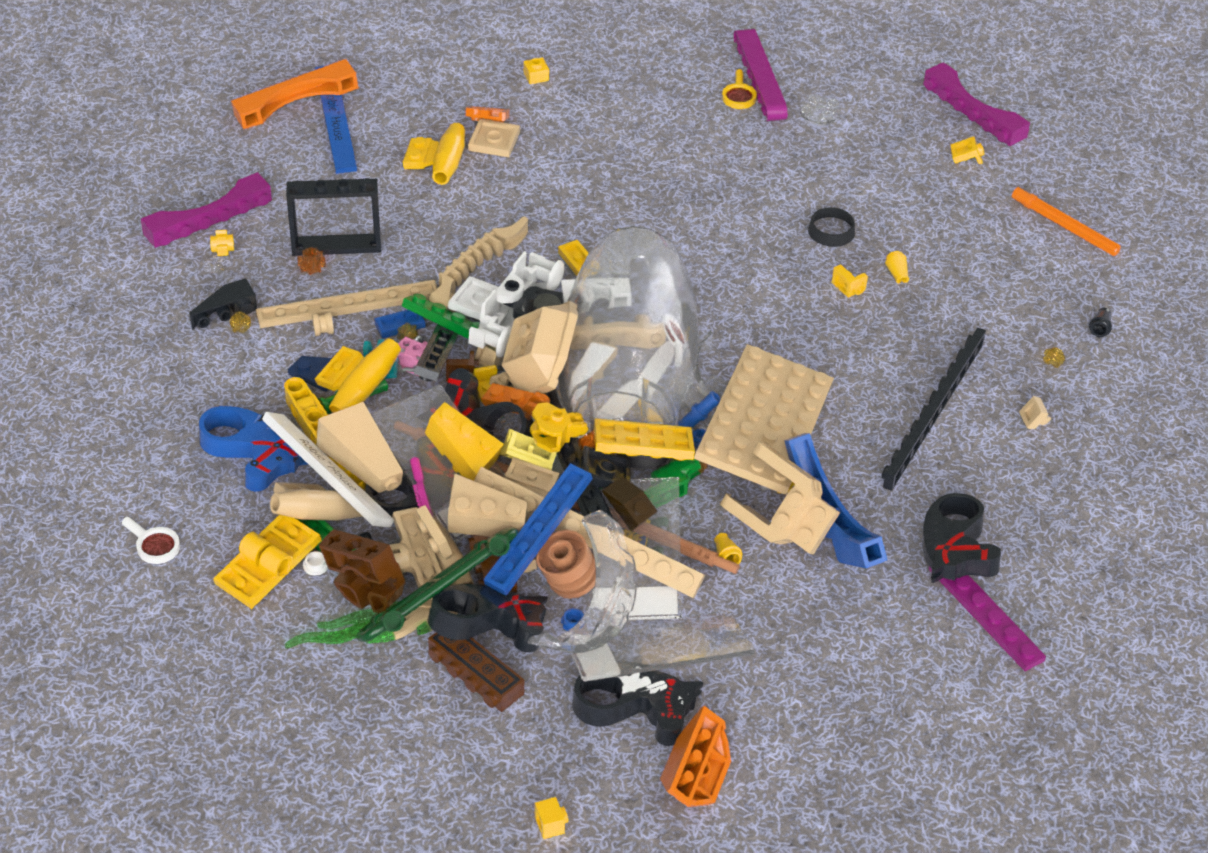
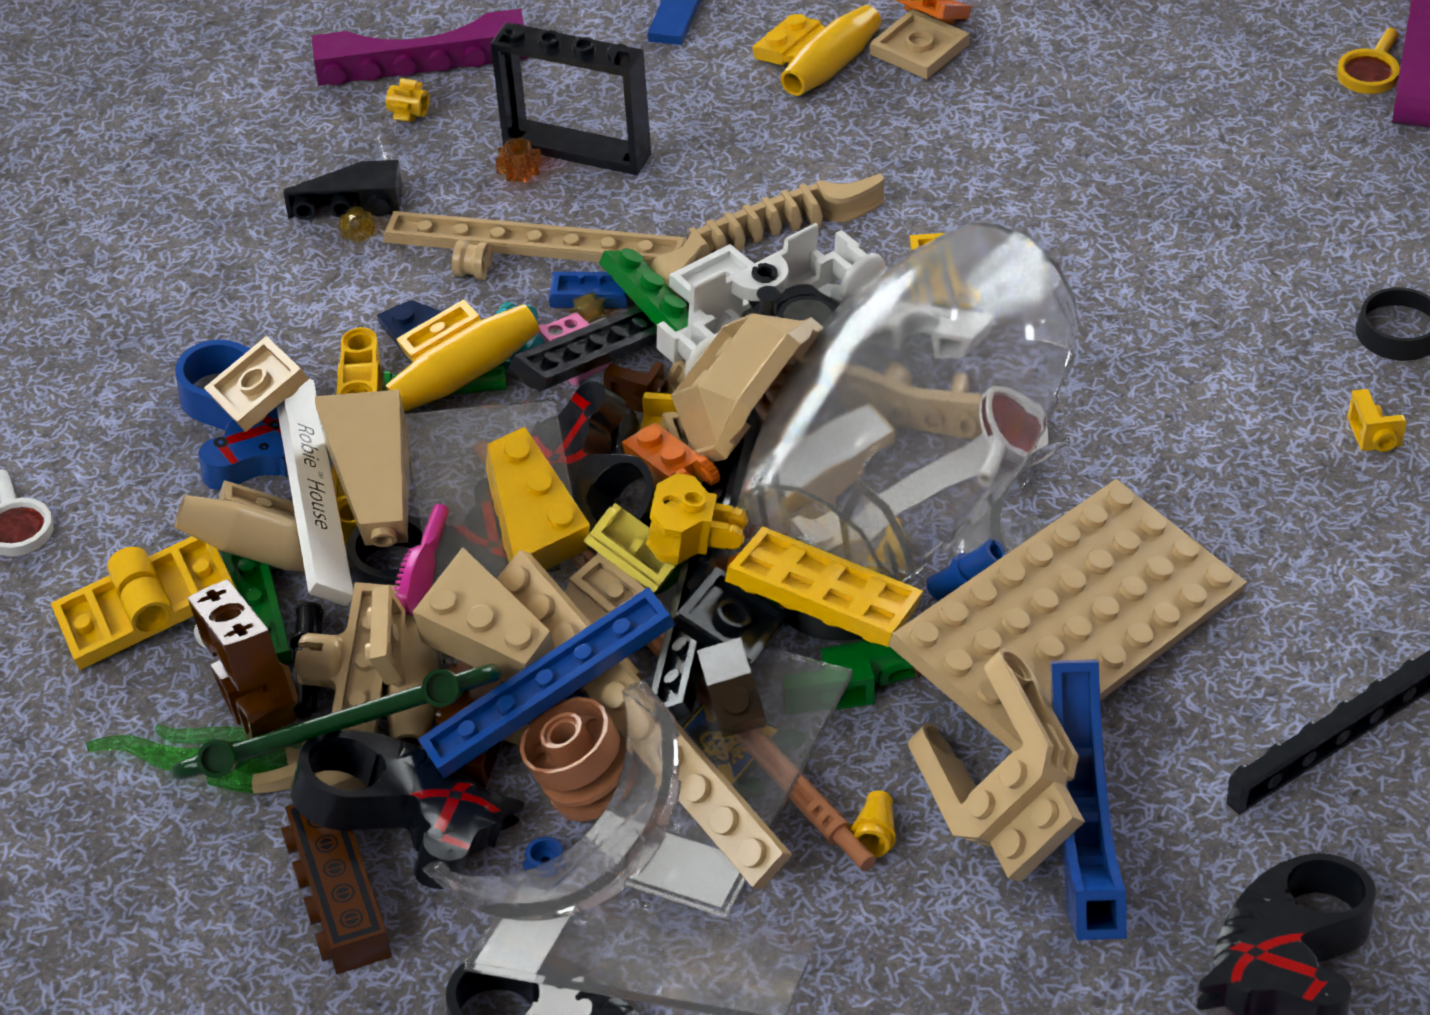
camera: 30 degrees right, 0 degrees up
(262, 423) = (256, 383): none -> tan plate

